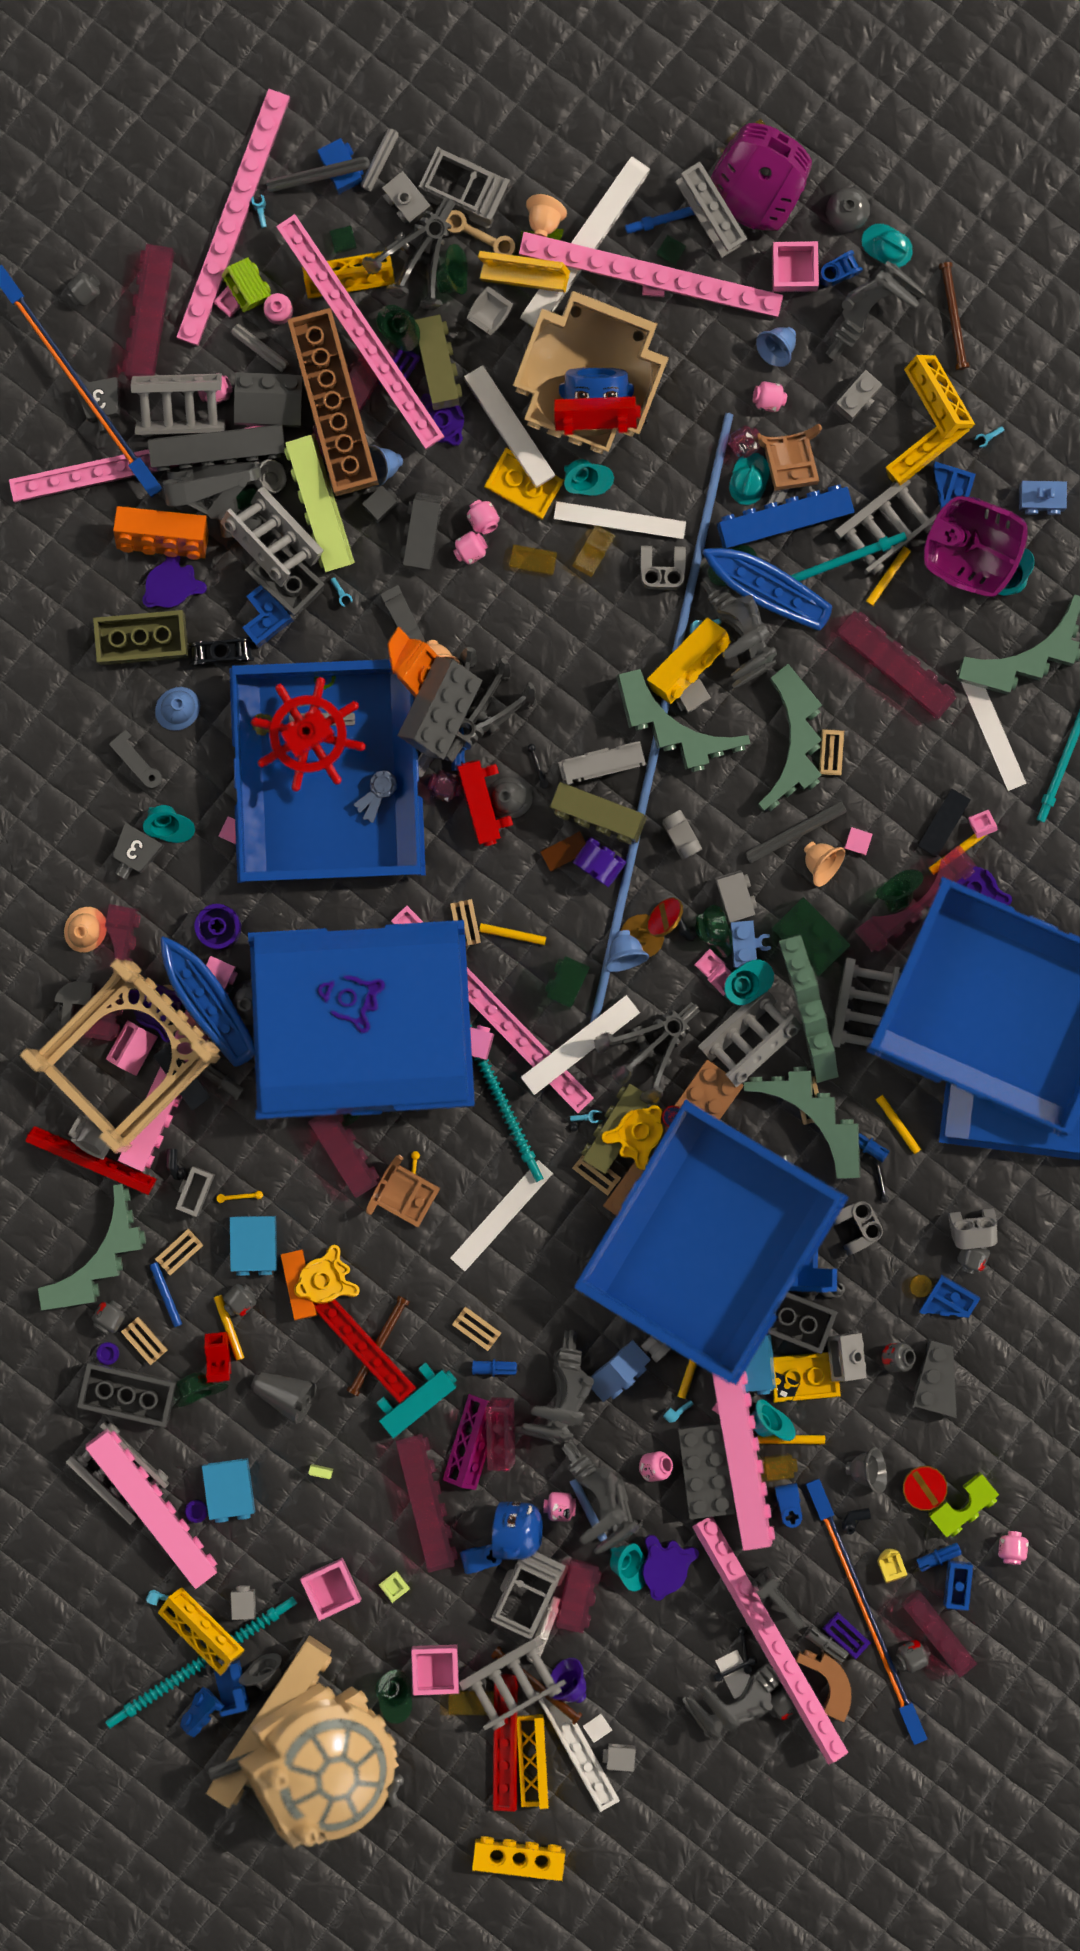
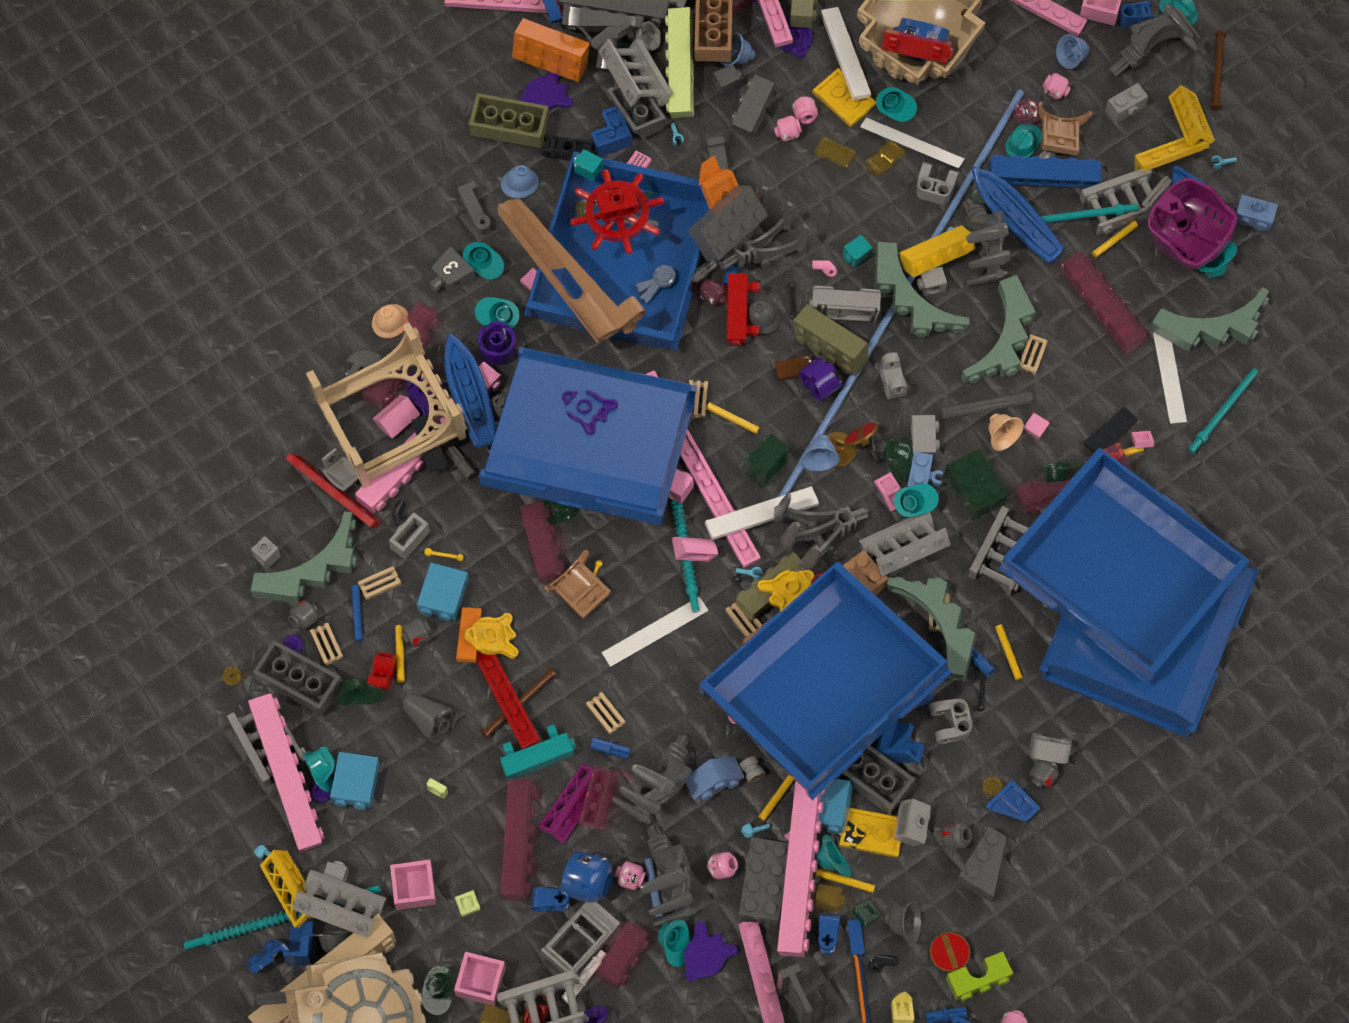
camera: 15 degrees right, 20 degrees down
(41, 1257) = (265, 552): none -> light grey brick
(54, 1403) = (231, 680): none -> clear yellow plate
(188, 1489) = (321, 766): none -> teal piece
(206, 889) = (496, 309): none -> teal piece
(255, 683) = (588, 165): none -> teal brick
(261, 1624) = (342, 893): none -> light grey fence
(308, 642) = (640, 160): none -> bright pink tile
(318, 865) = (594, 307): none -> medium nougat panel
(517, 1109) = (694, 549): none -> bright pink brick
(565, 712) = (826, 266): none -> bright pink arm
(595, 684) = (857, 251): none -> teal brick
(810, 1009) = (961, 535): sand green arch -> none
(824, 1470) = (866, 913): none -> clear green tile
(923, 506) = (1157, 192): none -> light grey axle

